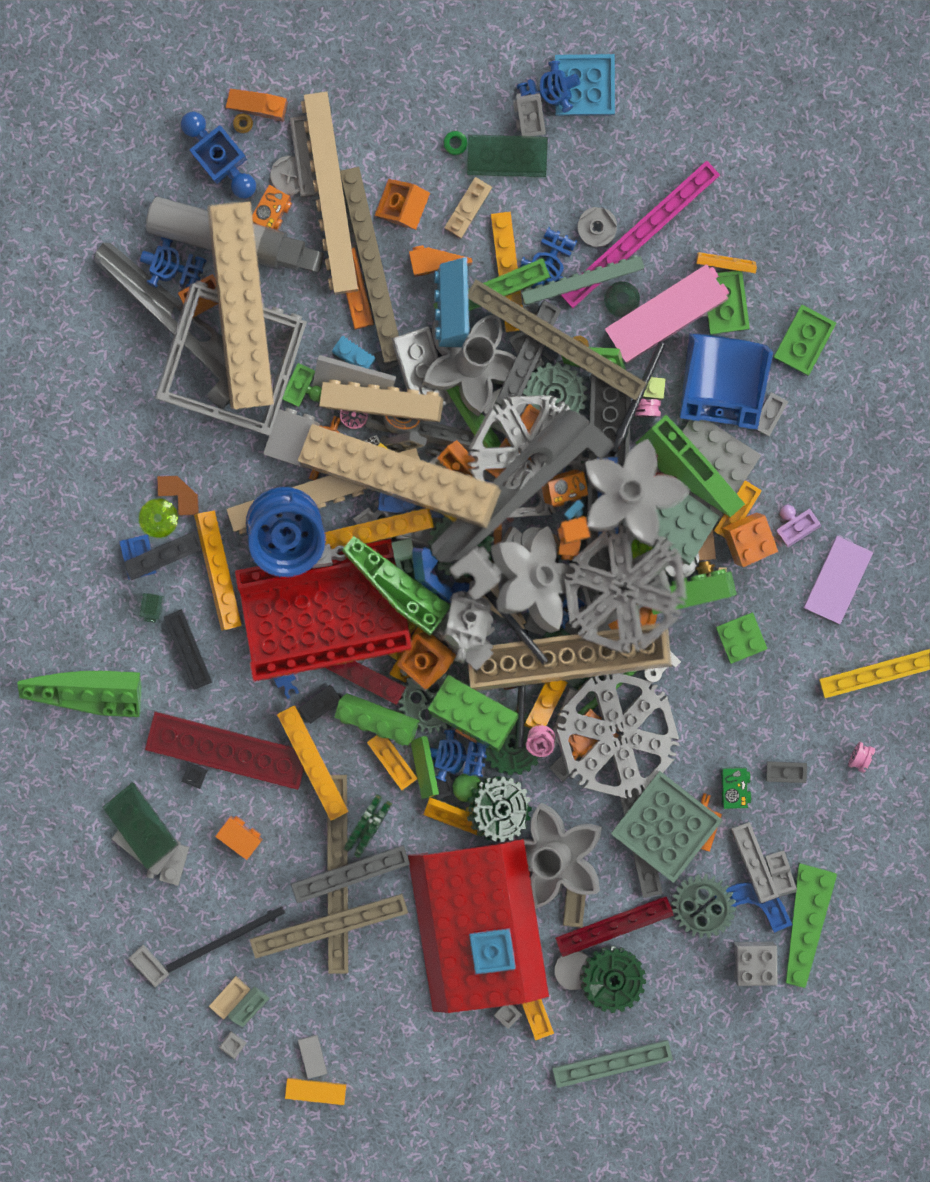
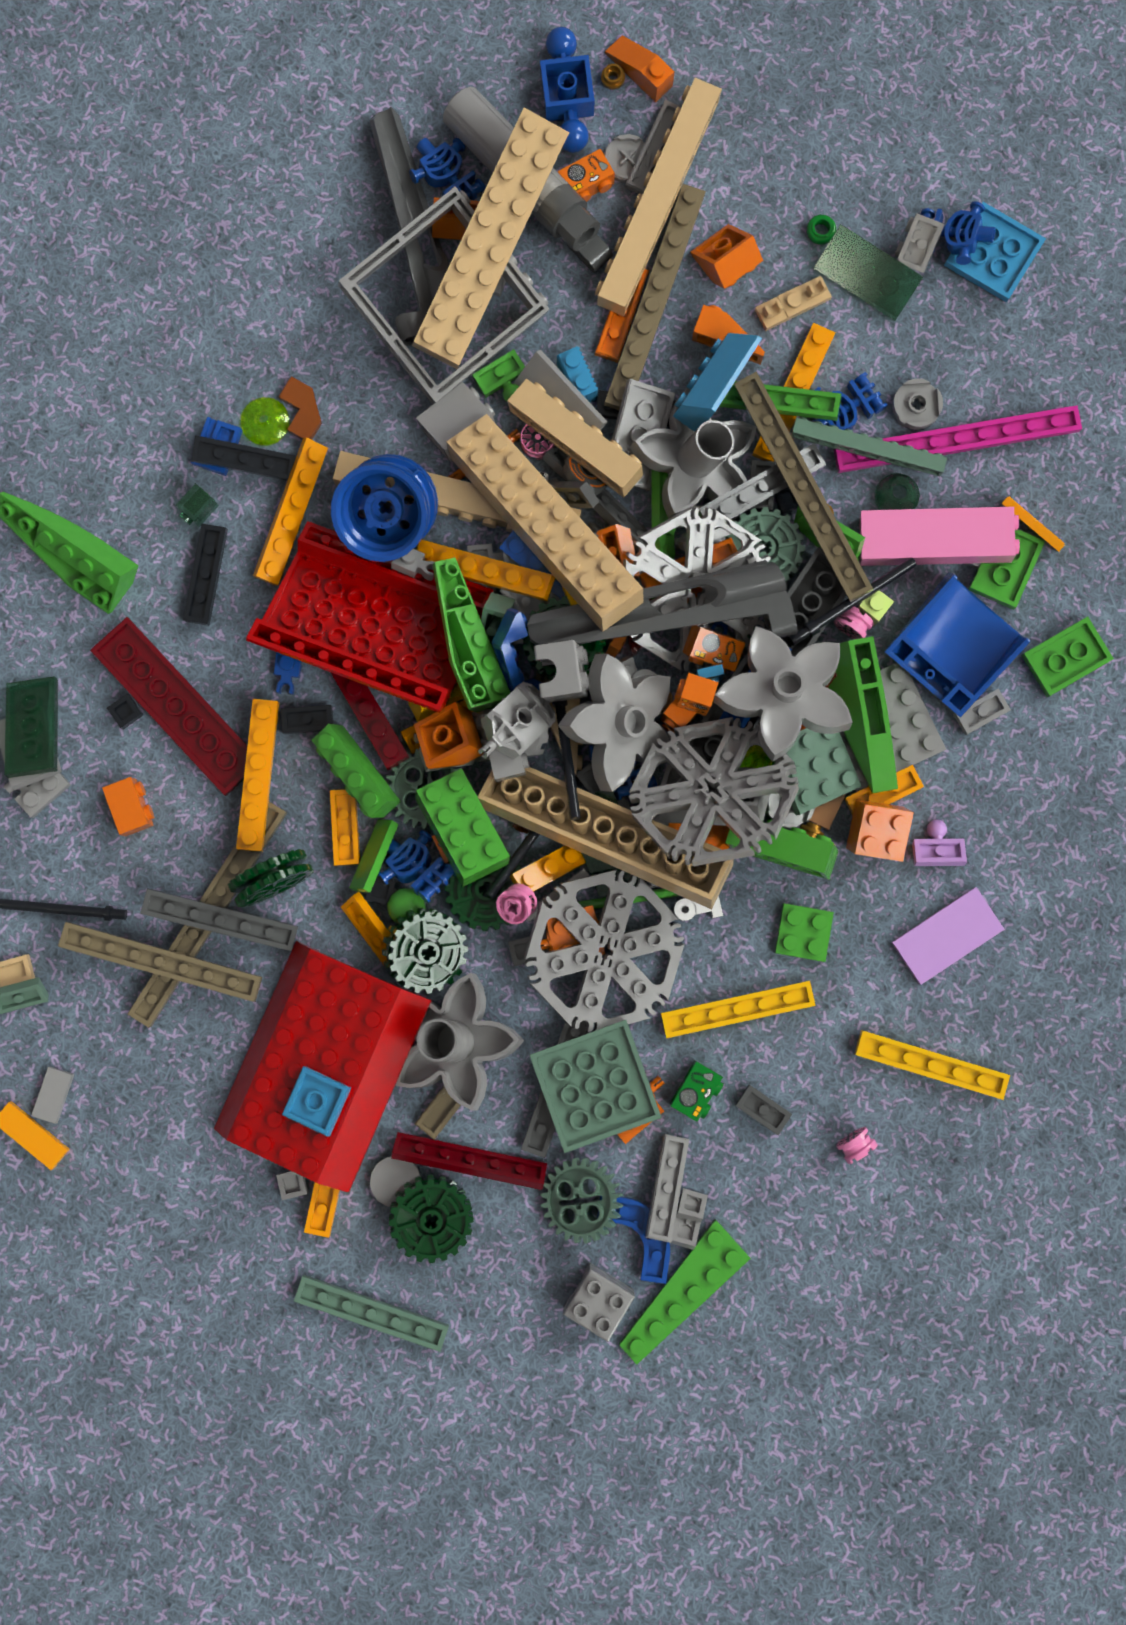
camera: 30 degrees right, 5 degrees down
(729, 716) = (737, 1009): none -> yellow plate

